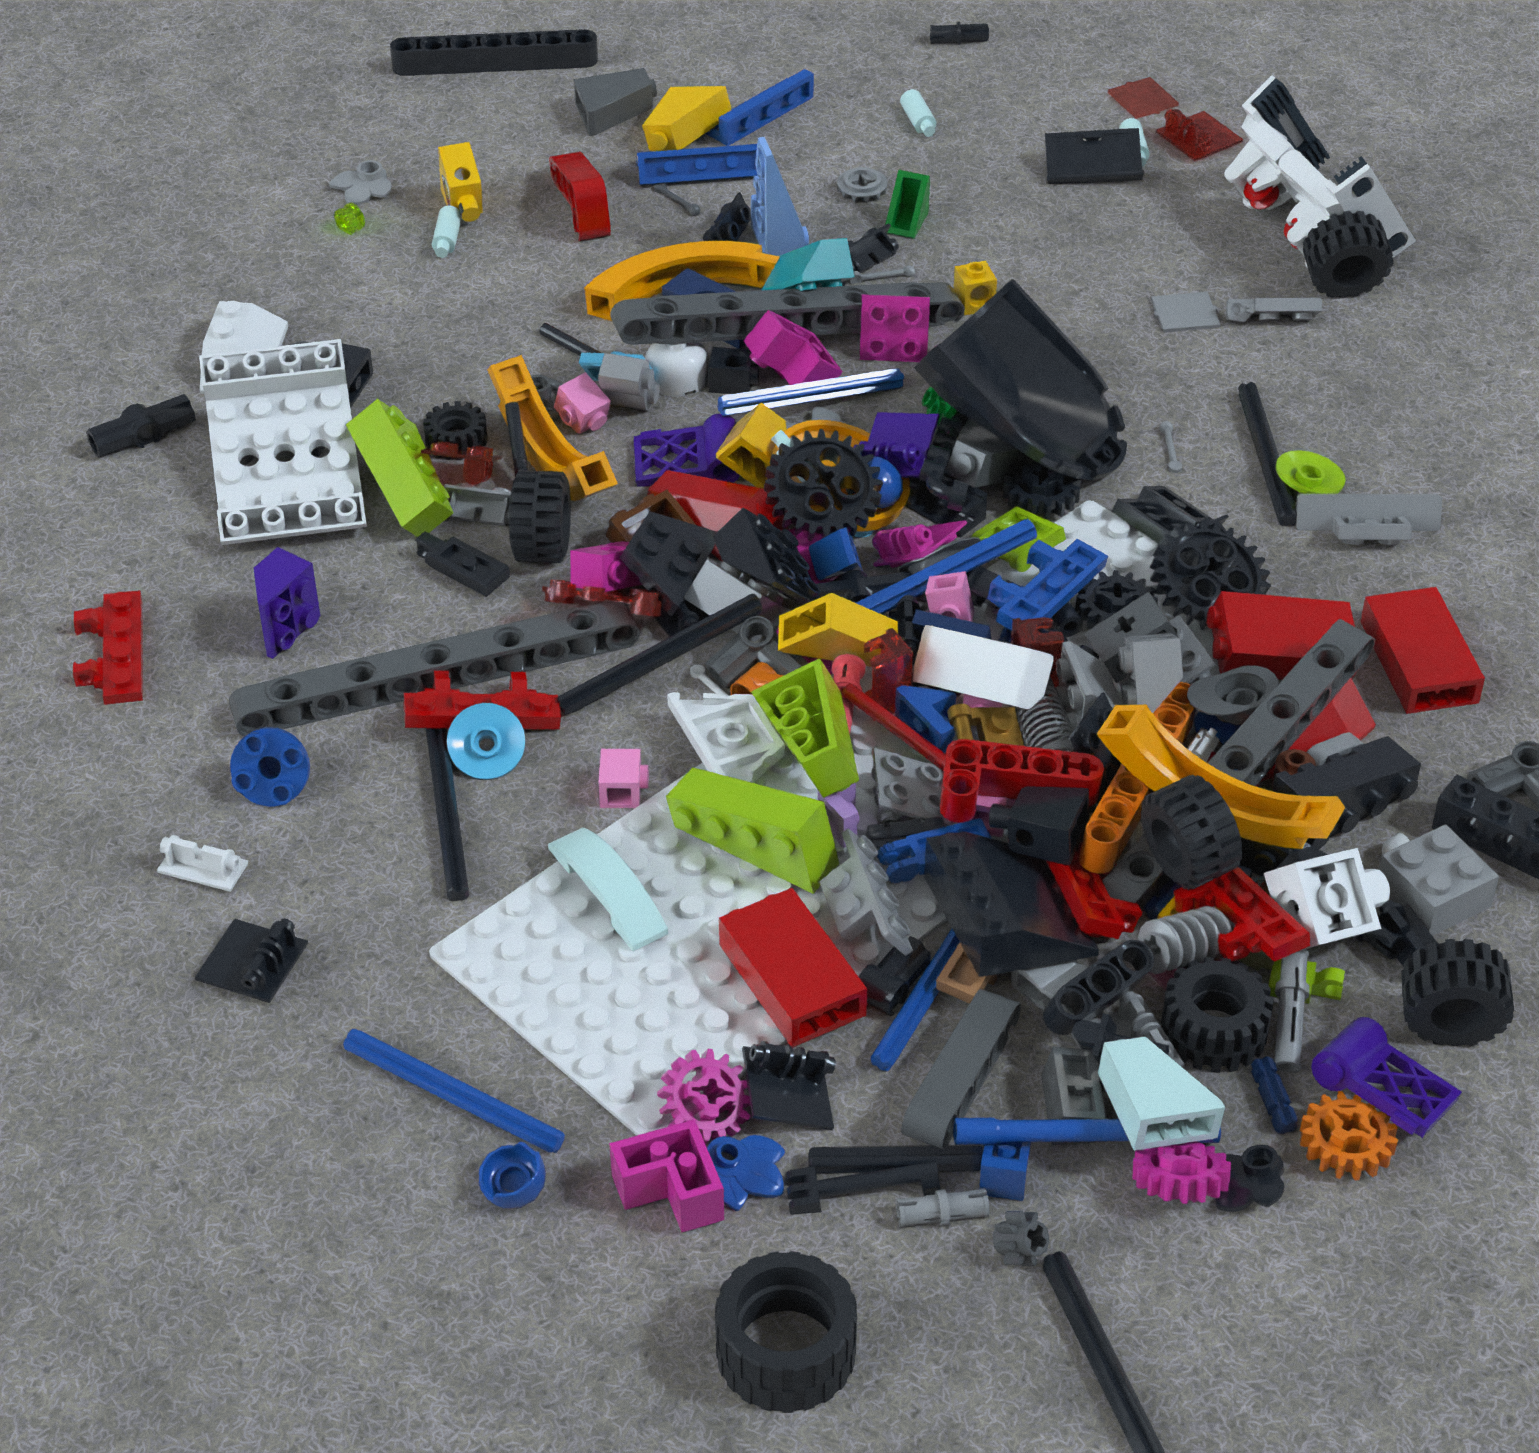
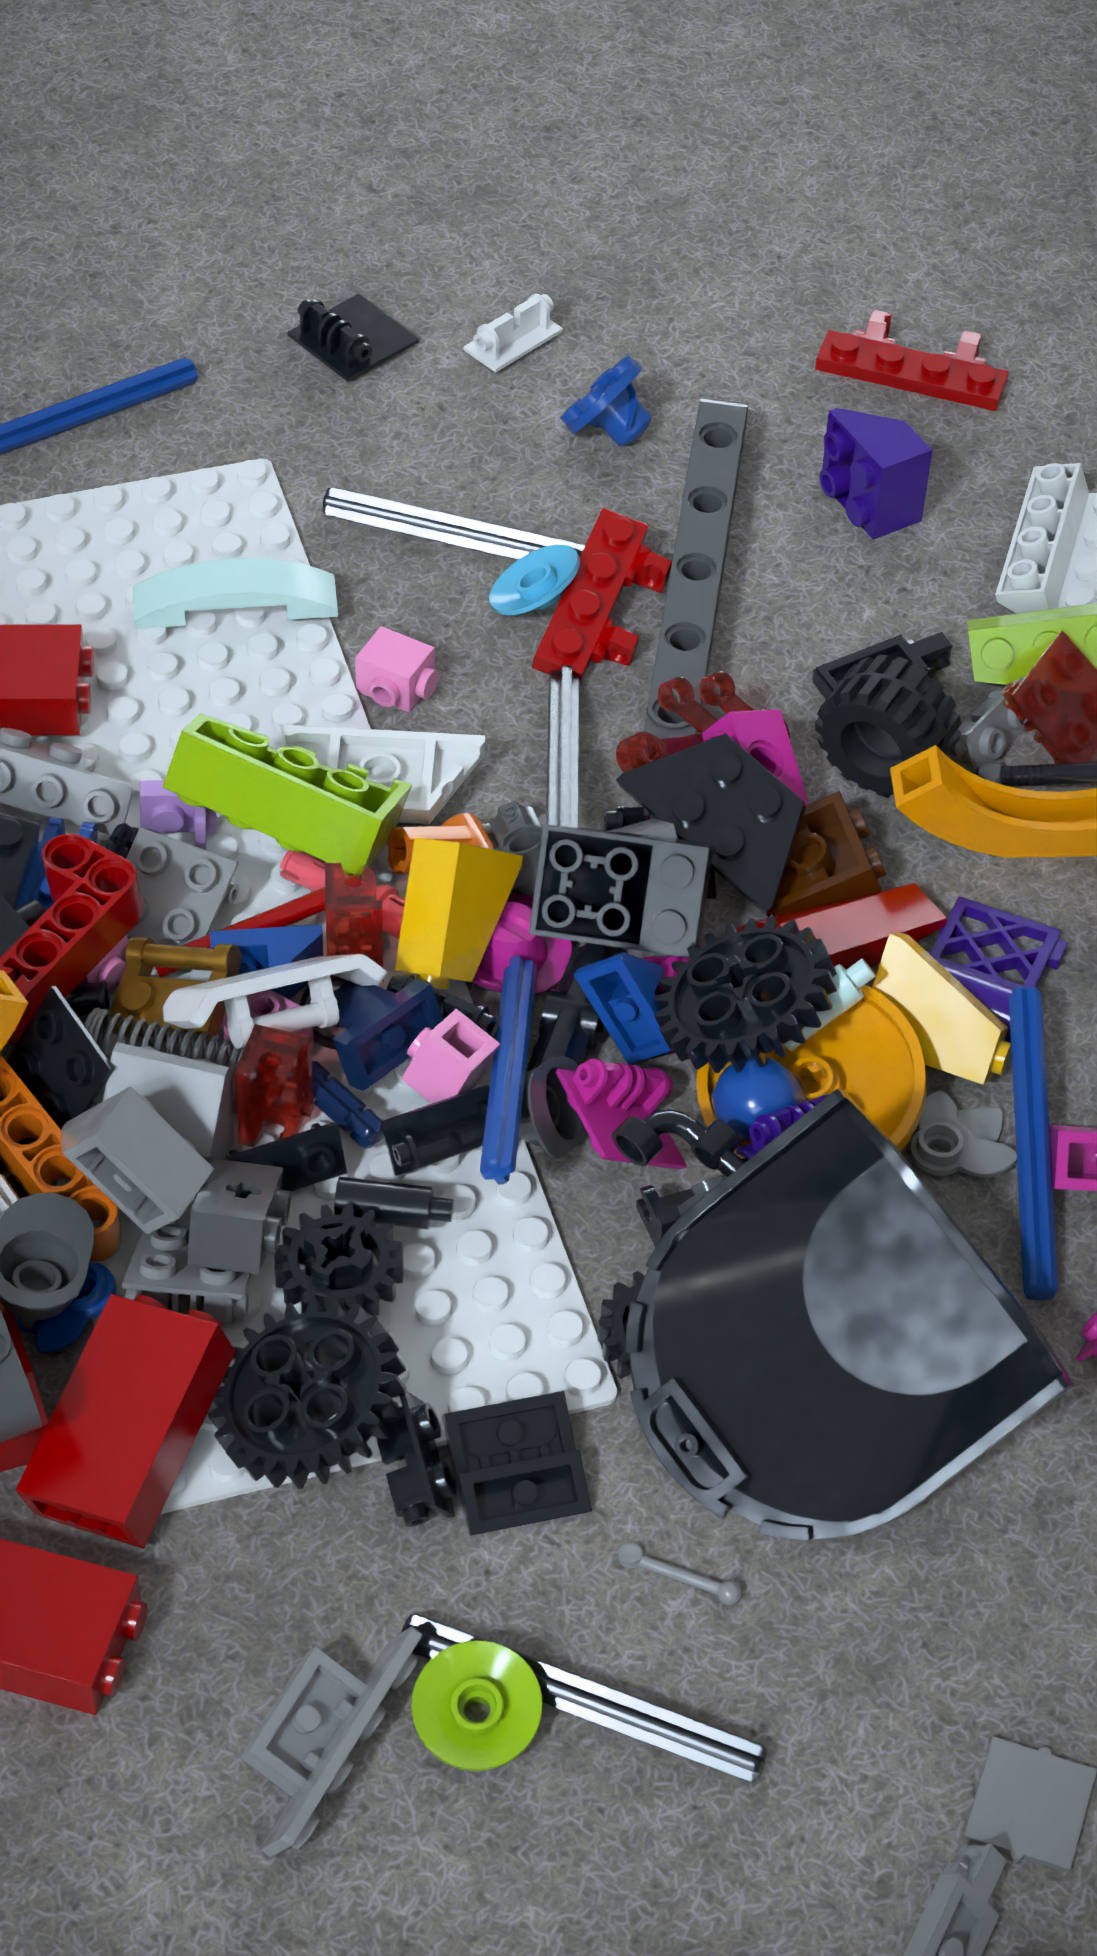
camera: 115 degrees right, 5 degrees up
(757, 824) = (150, 713): lime wedge -> none
(1046, 532) = (561, 1236): lime plate -> none
(1059, 580) = (368, 1129): blue hinge -> none

